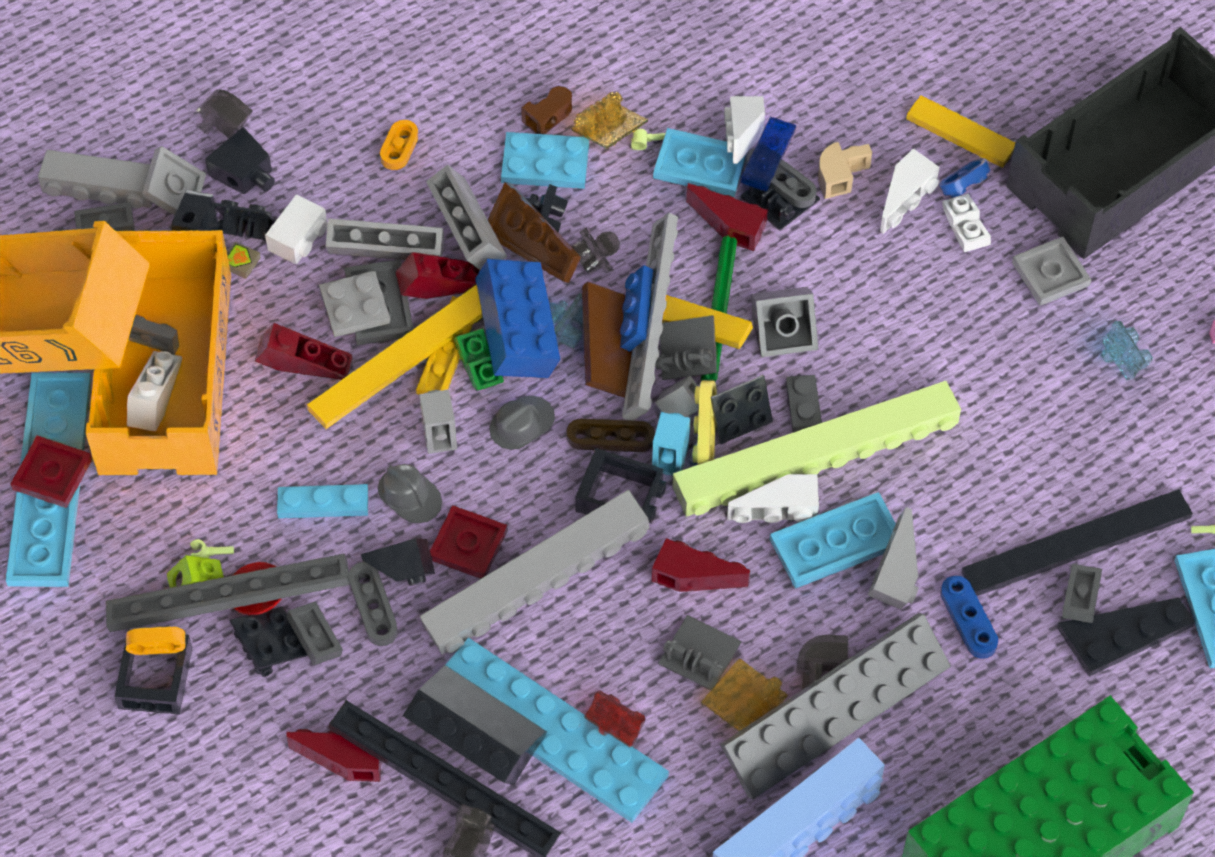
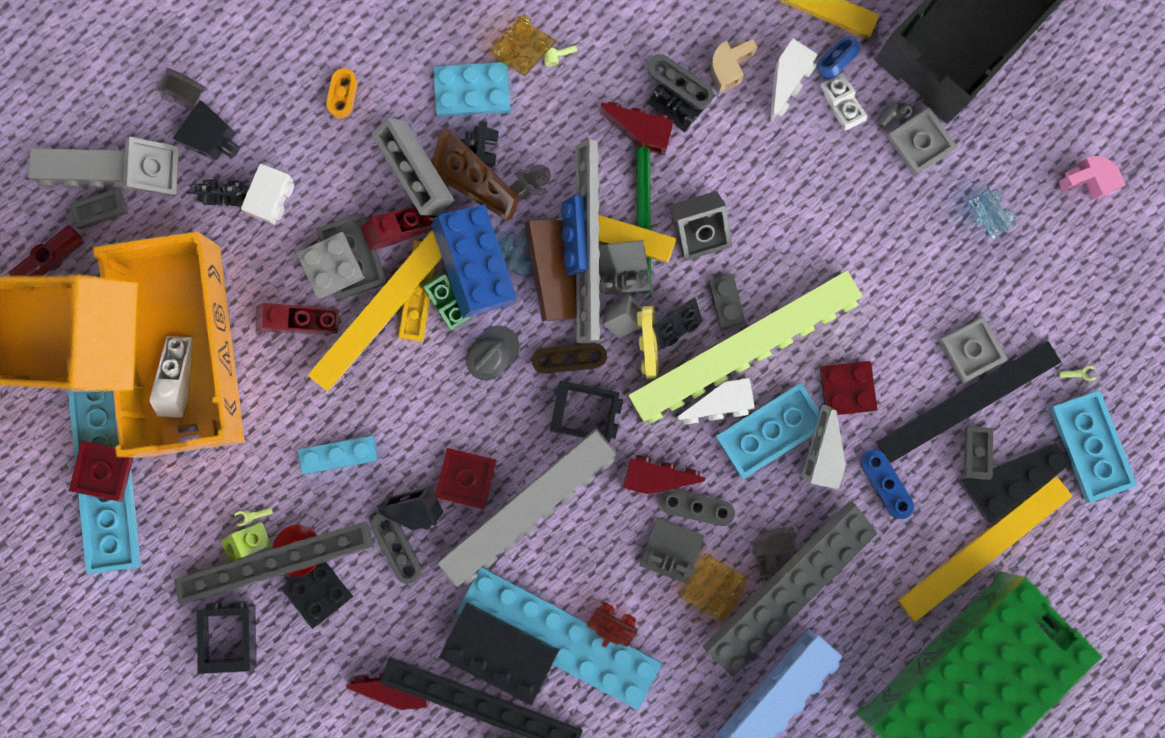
camera: 10 degrees left, 25 degrees up
(154, 335) = (169, 323): dark grey plate -> none
(155, 640) = (220, 625): light orange beam -> none
(195, 213) = (175, 209): black torso -> none
(242, 259) = (225, 229): tile -> none
(314, 633) = (353, 583): dark grey plate -> none
(382, 239) = (345, 198): light grey brick -> none
(410, 494) = (409, 436): dark grey piece -> none
(438, 421) = (421, 373): light grey brick -> none
(549, 111) = (467, 40): reddish brown leg -> none
(671, 442) = (623, 366): medium azure brick -> none
(698, 161) = (608, 74): medium azure plate -> none
(743, 124) = (643, 32): white slope -> none
(747, 619) = (685, 504): none -> dark grey plate
(768, 154) = (667, 62): clear blue tile -> none
(937, 509) = (849, 387): none -> dark red plate
(1022, 239) = (892, 112): none -> dark grey arm
(1061, 709) = (984, 548): none -> yellow tile
(1088, 489) = (972, 349): none -> light grey tile

